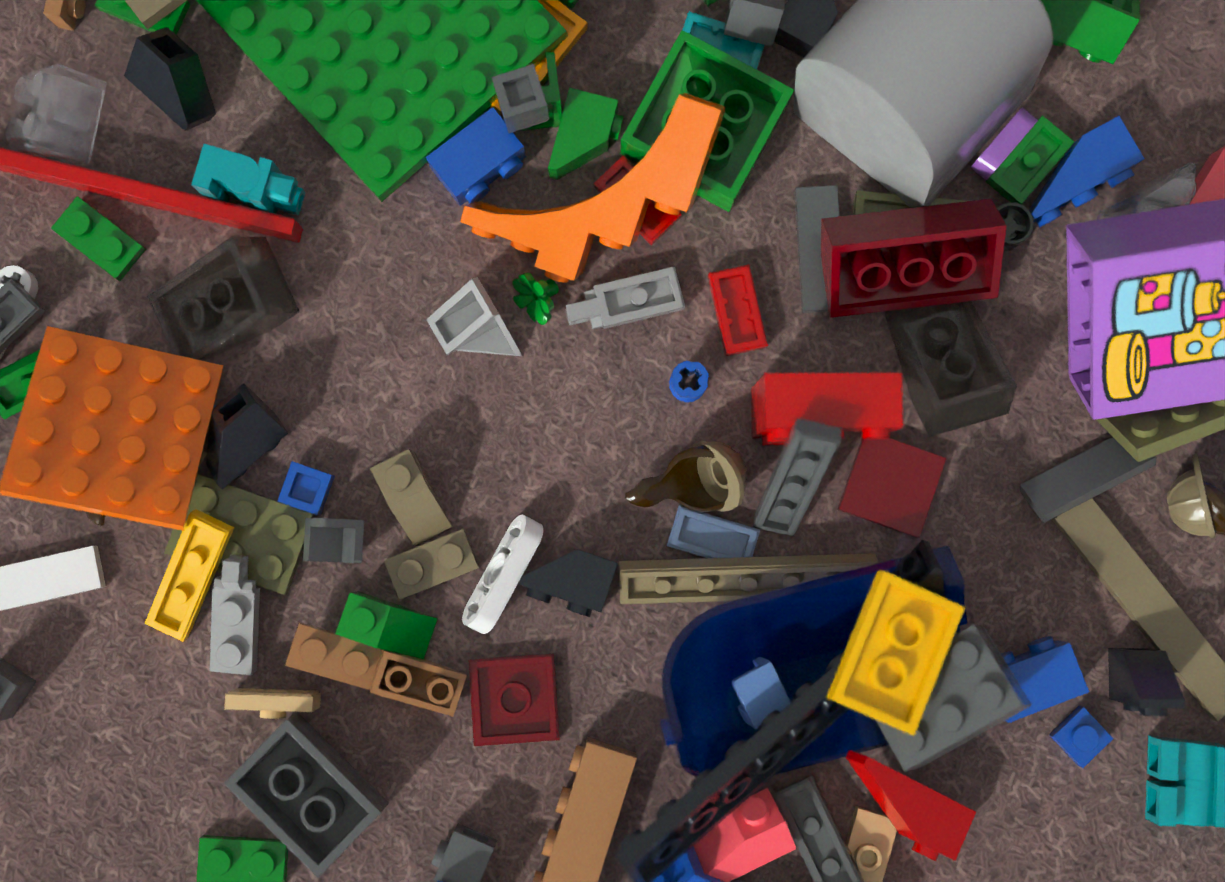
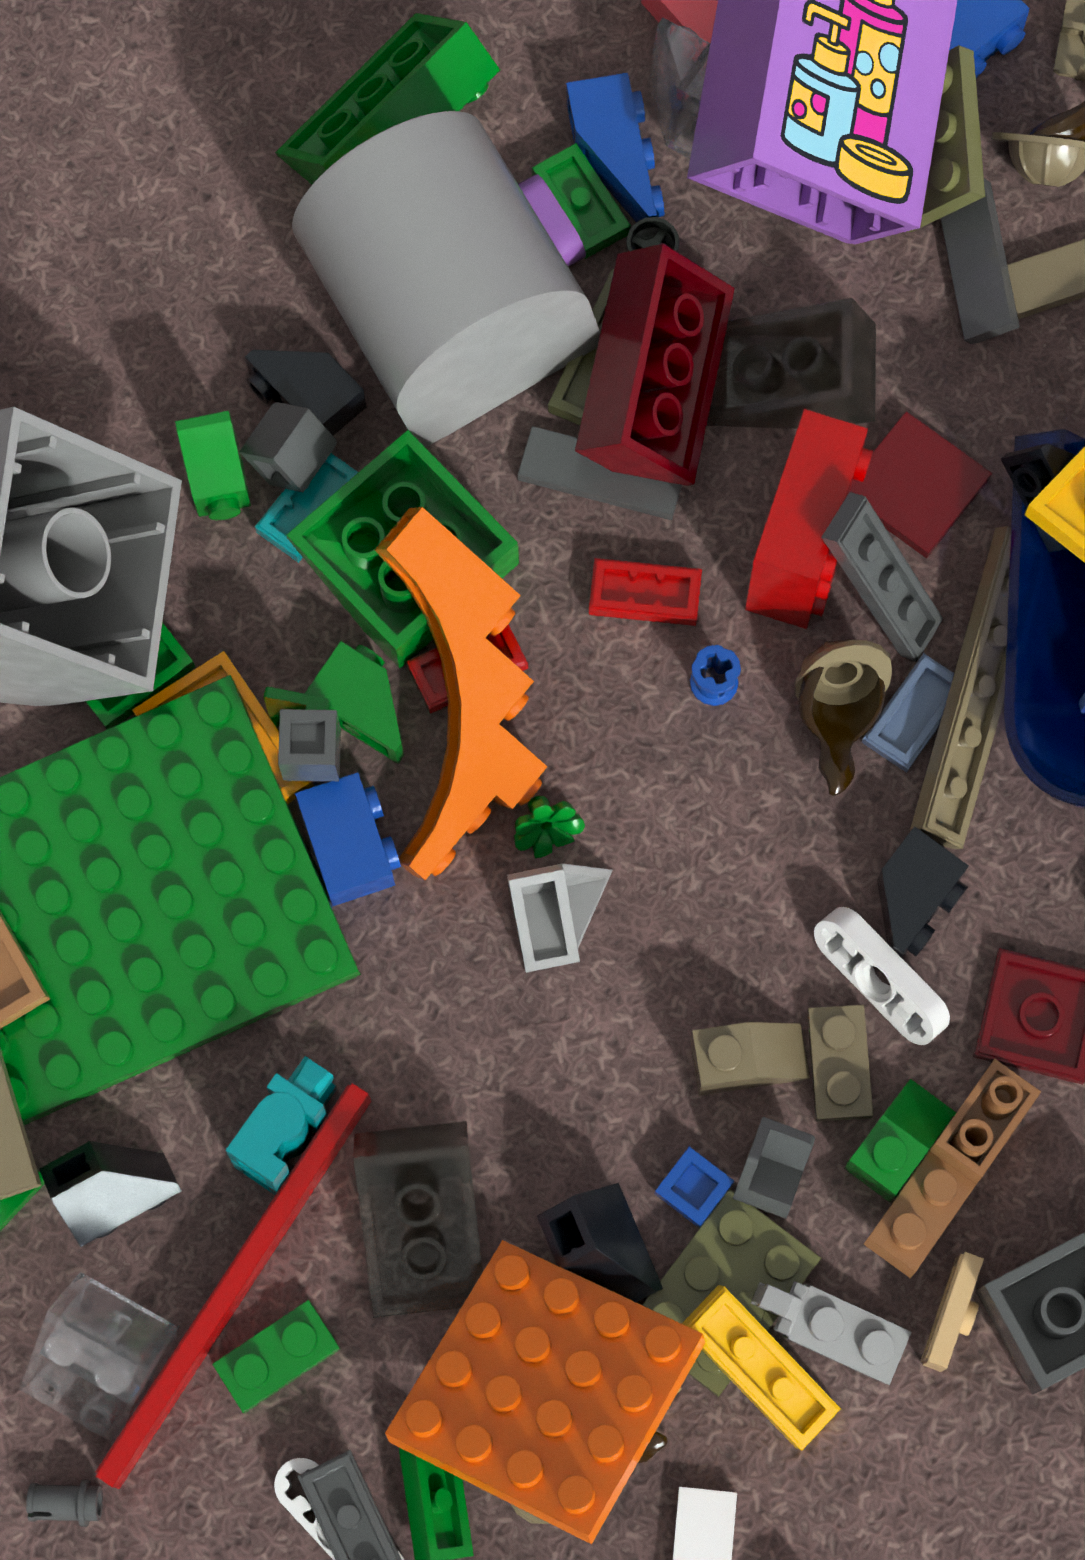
camera: 65 degrees left, 10 degrees down
(629, 300) = (589, 715): light grey hinge -> none

